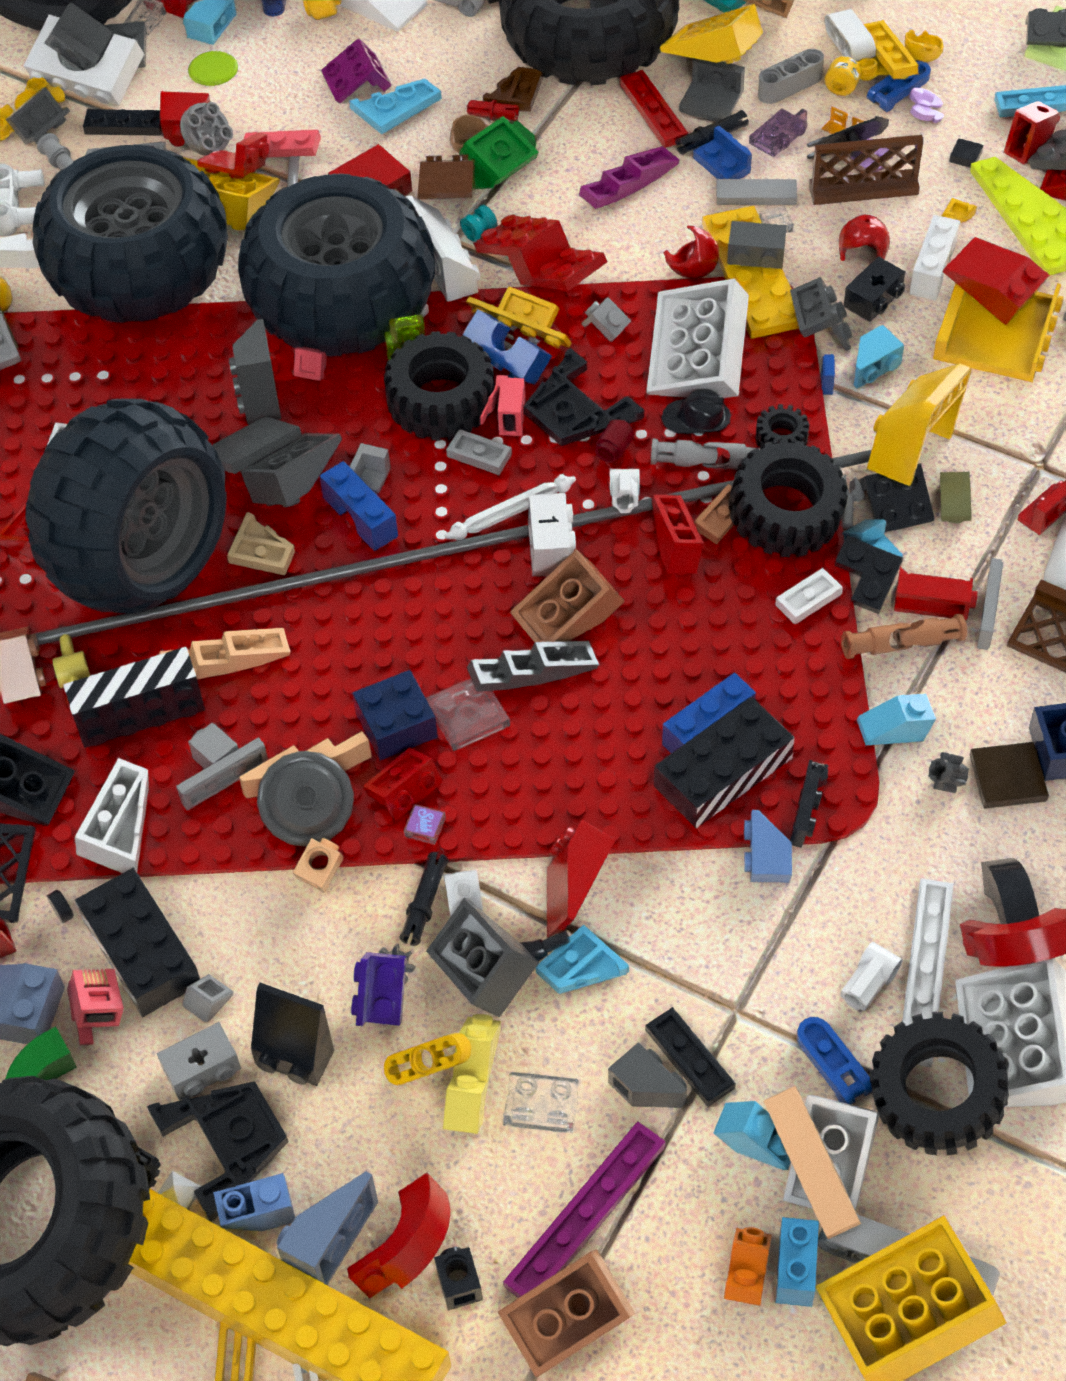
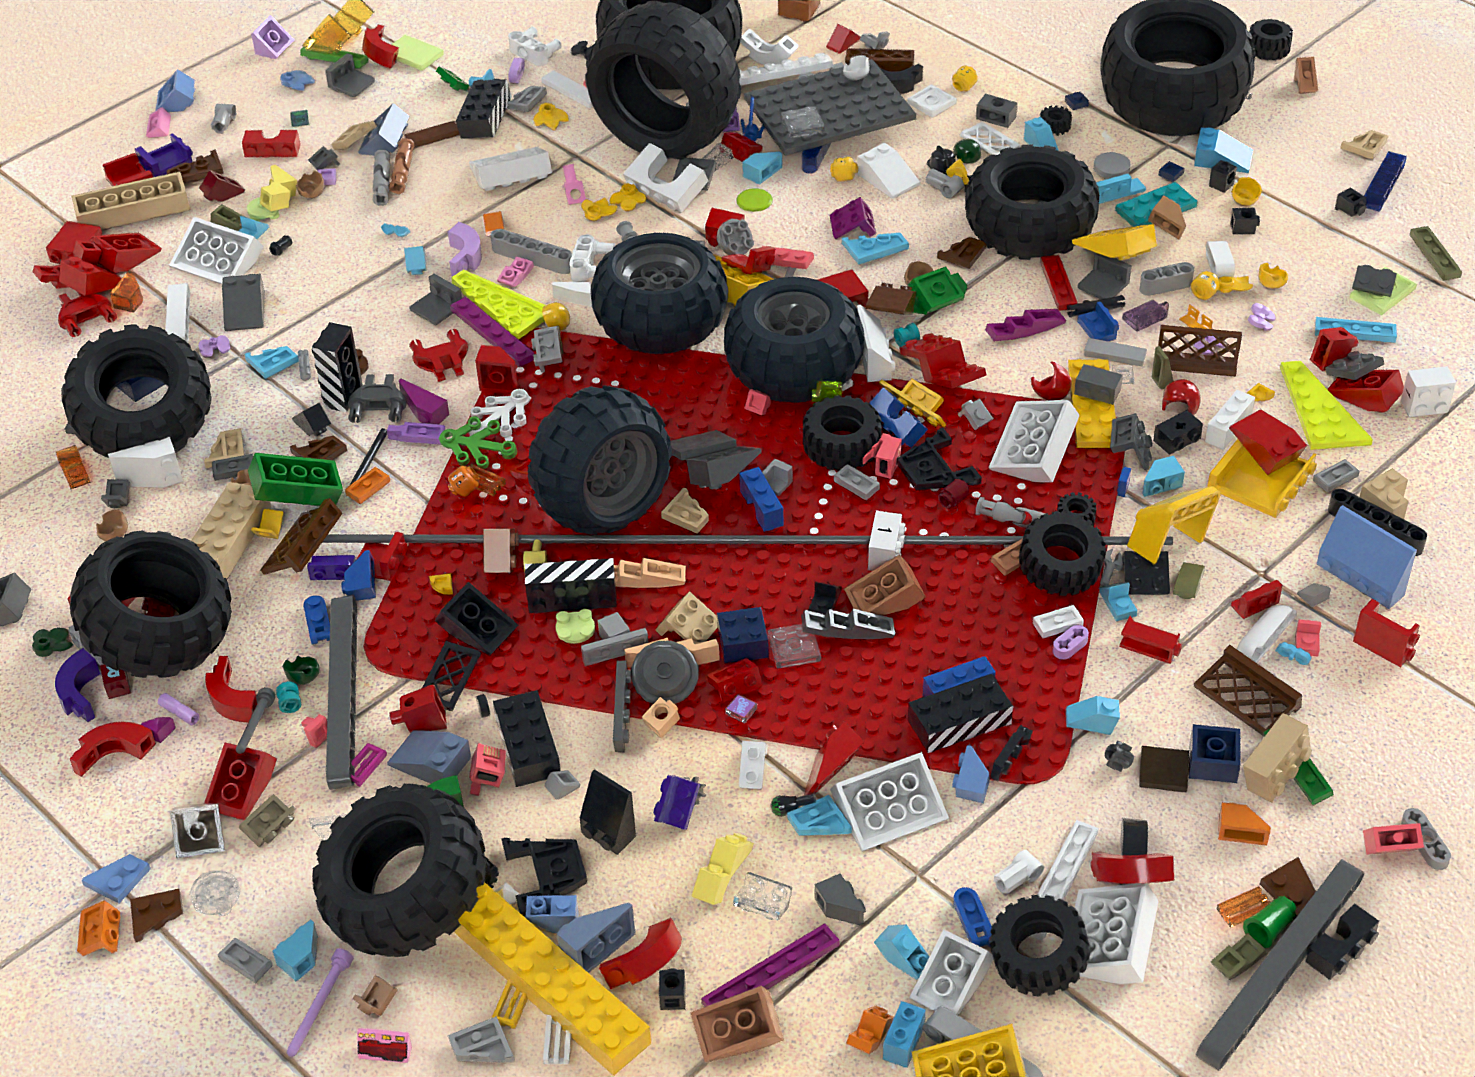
camera: 15 degrees right, 10 degrees down
(37, 116) = (622, 208): dark grey bracket -> none
(78, 37) = (665, 161): dark grey bracket -> none
(116, 819) = (535, 658): white wedge -> none
(122, 122) = (679, 223): black plate -> none
(158, 753) = (575, 626): none -> yellowish green piece
(182, 1059) = (544, 819): light grey brick -> none
(254, 374) = (715, 399): dark grey slope -> none
(262, 873) = (621, 713): none -> dark grey plate
(314, 709) = (690, 620): none -> tan bracket
(420, 909) = (721, 761): black pin -> none
(435, 1048) = (702, 852): yellow beam -> none
(481, 958) = (752, 799): dark grey slope -> none
(488, 633) = (824, 597): none -> black slope
(493, 110) = (941, 262): red axle -> none
(507, 508) = (859, 523): white wheel -> none
(624, 489) = (950, 525): white piece -> none
(668, 915) = (890, 801): none -> white slope
(676, 534) = (976, 562): red slope -> none
(690, 1056) = (875, 894): black tile -> none
(697, 413) = (1020, 487): black piece -> none
(812, 1162) = (933, 972): light nougat slope -> none
(827, 205) = (1161, 369): none -> olive slope
(828, 618) = (1073, 644): none -> lavender beam
(854, 133) = (1207, 322): black shield -> none
(876, 570) = (1112, 613): black plate -> none
(891, 51) = (1245, 274): yellow plate -> none
(898, 88) = (1246, 298): blue plate -> none
(922, 632) = (1134, 662): nougat piece -> none
(966, 152) = (1280, 354): black tile -> none
(990, 604) = (1189, 655): light grey tile -> none

